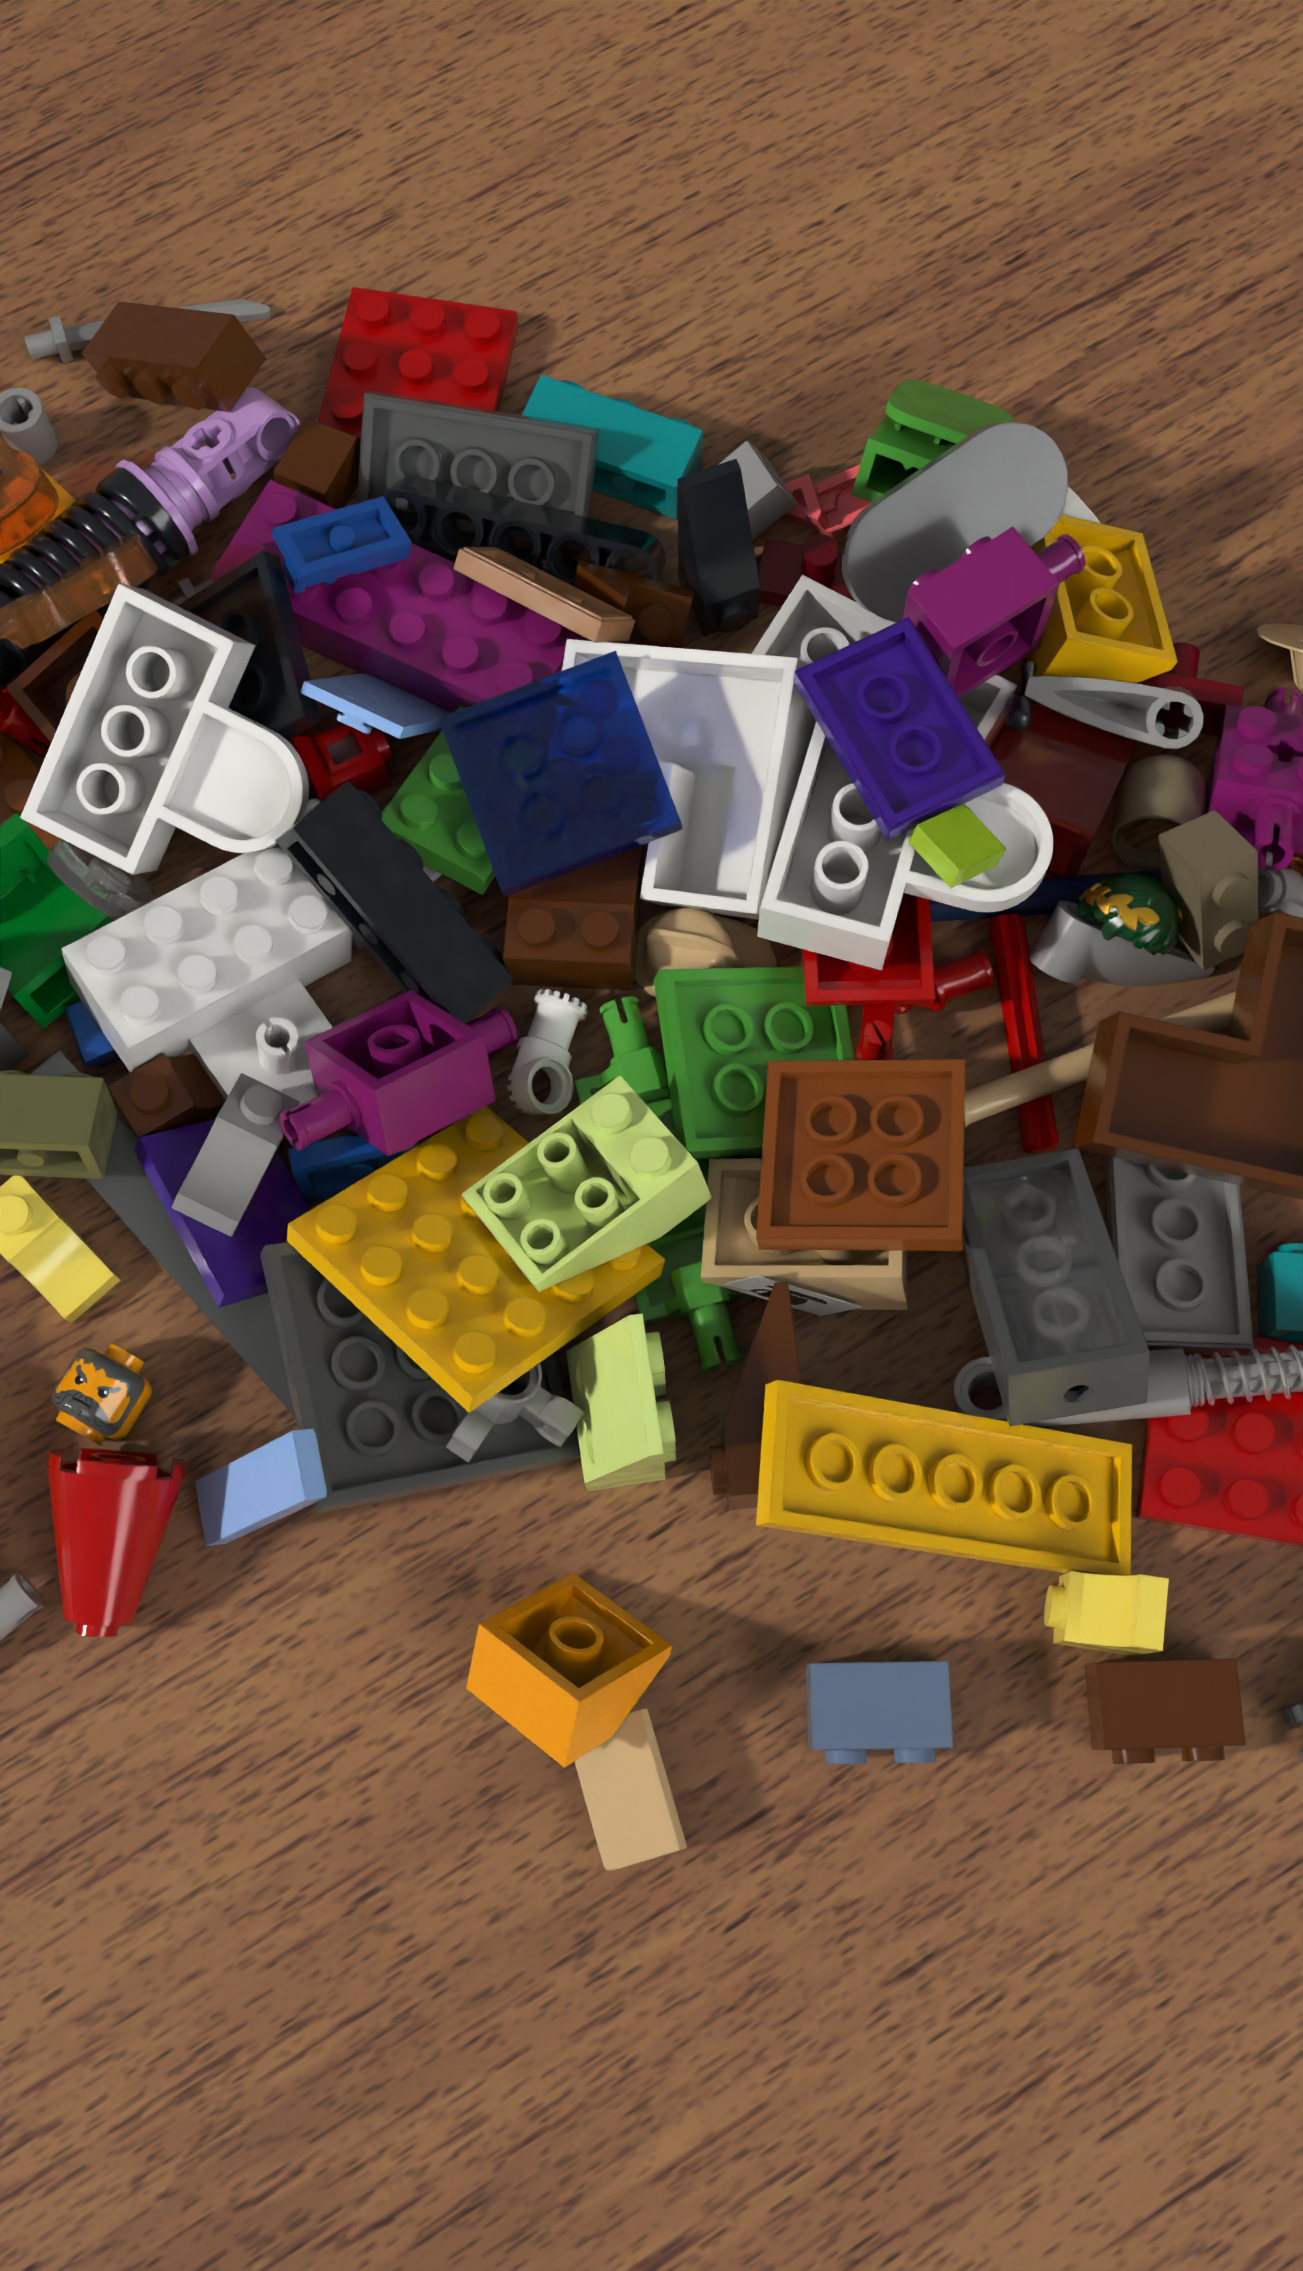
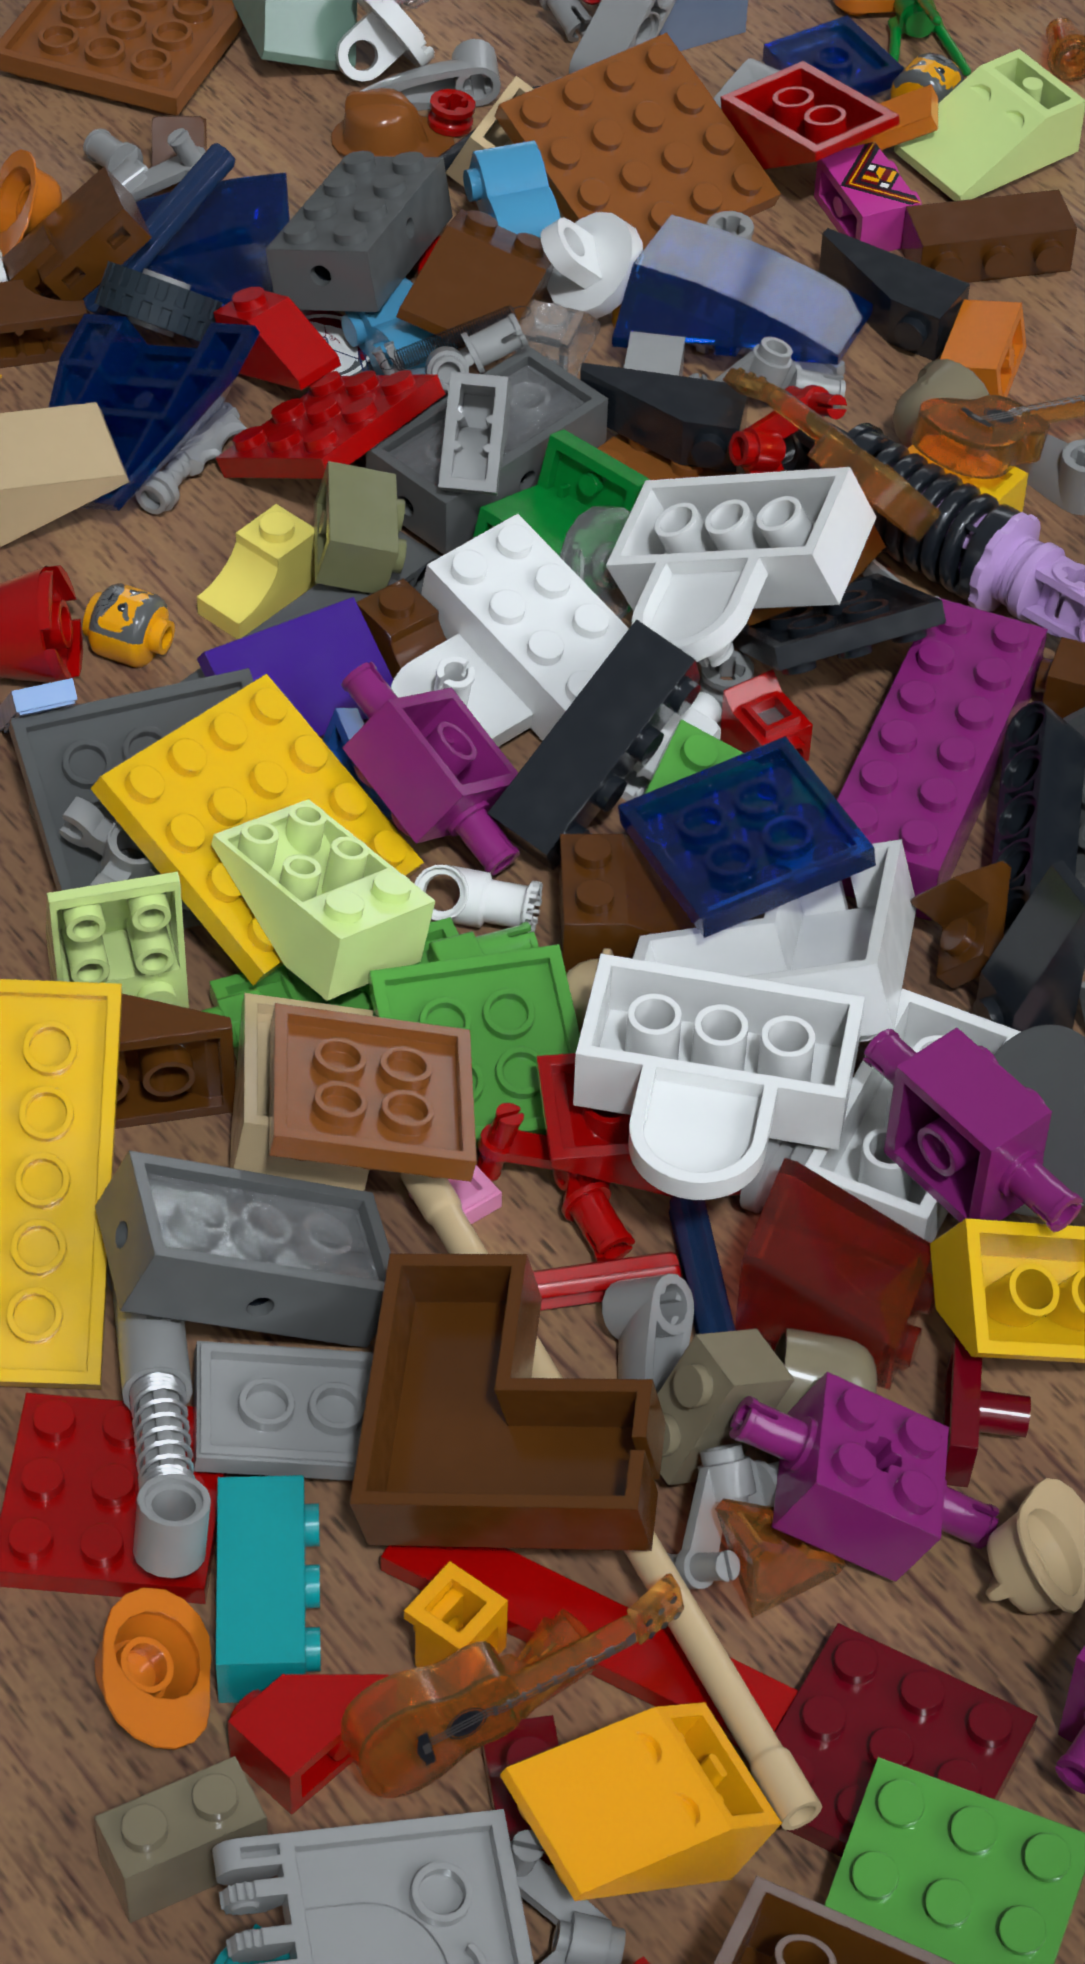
camera: 80 degrees right, 25 degrees down
(234, 1155) = (325, 652): light grey arch -> none
(341, 543) = (965, 657): blue plate -> none
(375, 703) = (814, 717): light blue container -> none
(545, 594) = (950, 823): medium nougat tile -> none
(800, 1298) = (234, 1073): white sticker -> none
(898, 728) = (808, 1044): dark purple tile -> none
(957, 845) = (685, 1097): lime tile -> none
(1018, 705) = (903, 1221): black piece -> none
(1119, 707) = (912, 1324): light grey piece -> none
(1136, 910) = (665, 1329): dark green hair -> none

